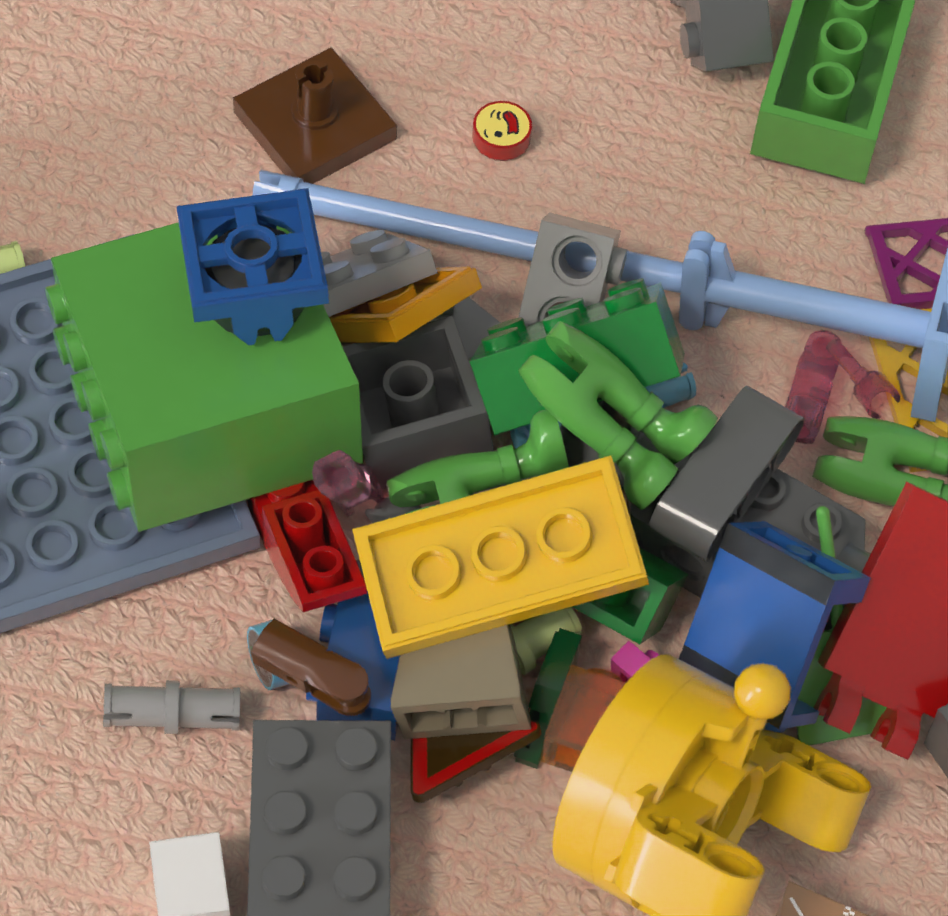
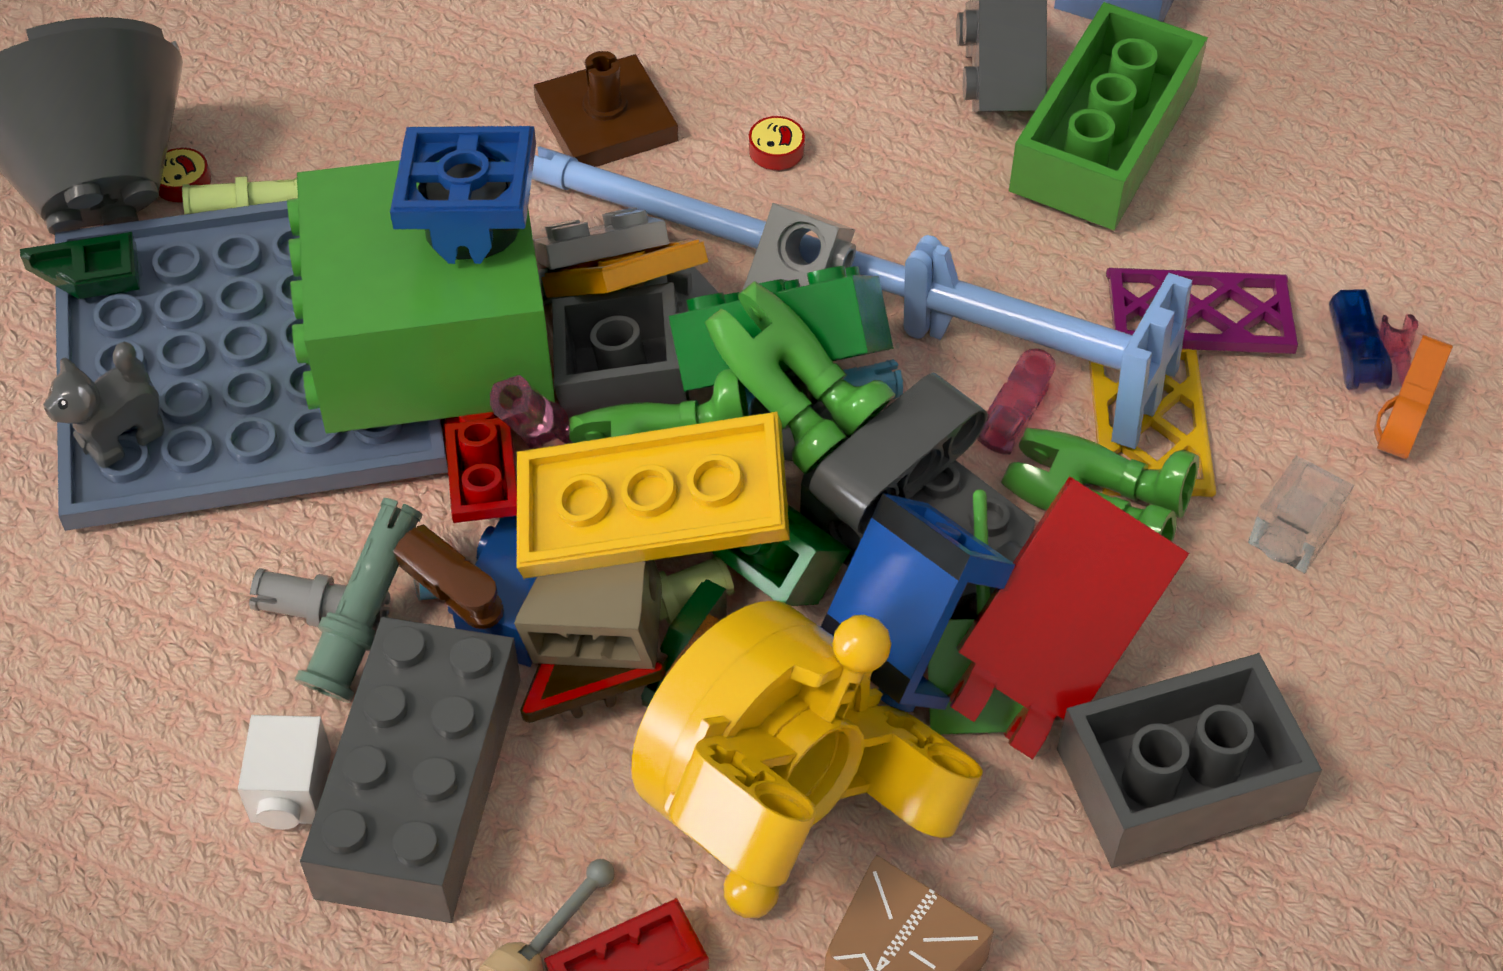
camera: 15 degrees right, 5 degrees down
(216, 736) = (349, 629): none -> sand green pin
(866, 383) = (1072, 403): clear pink hand -> none

